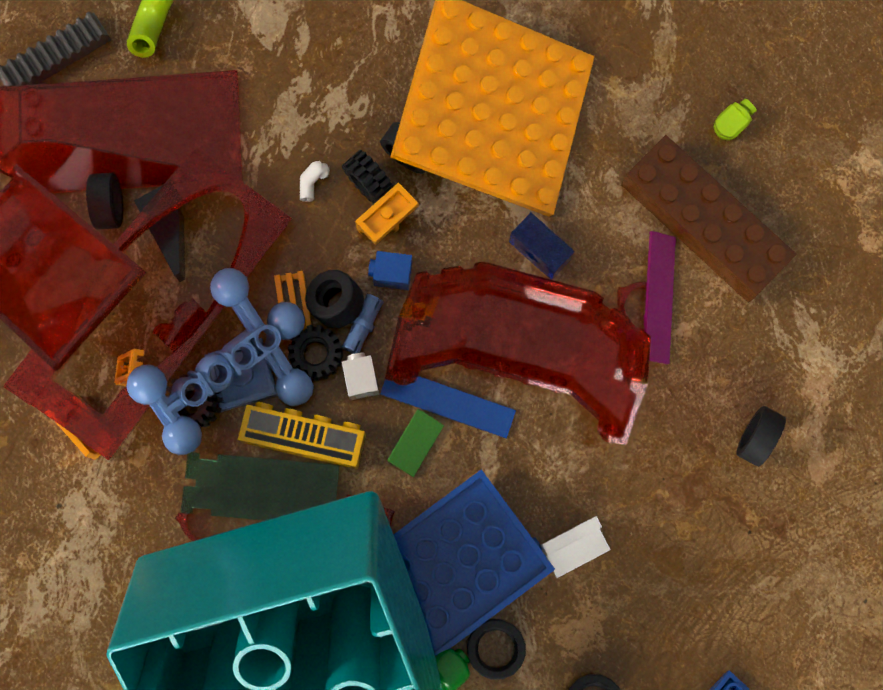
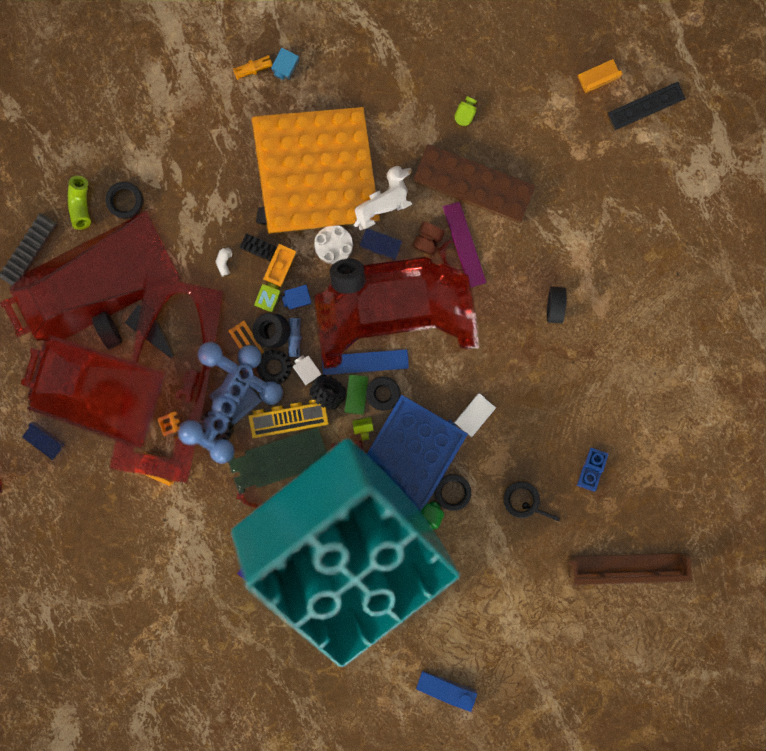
camera: 15 degrees left, 10 degrees up
(211, 22) = (110, 196): none -> black tyre
(350, 252) = (268, 297): none -> lime brick
(375, 419) = (327, 392): none -> black tyre
(405, 493) = (363, 426): none -> lime tile
(449, 439) = (371, 393): none -> black tyre
(474, 219) = (333, 244): none -> white brick
(476, 265) = (347, 276): none -> black tyre
(573, 189) = (387, 201): none -> white animal
(609, 269) = (428, 238): none -> copper wheel

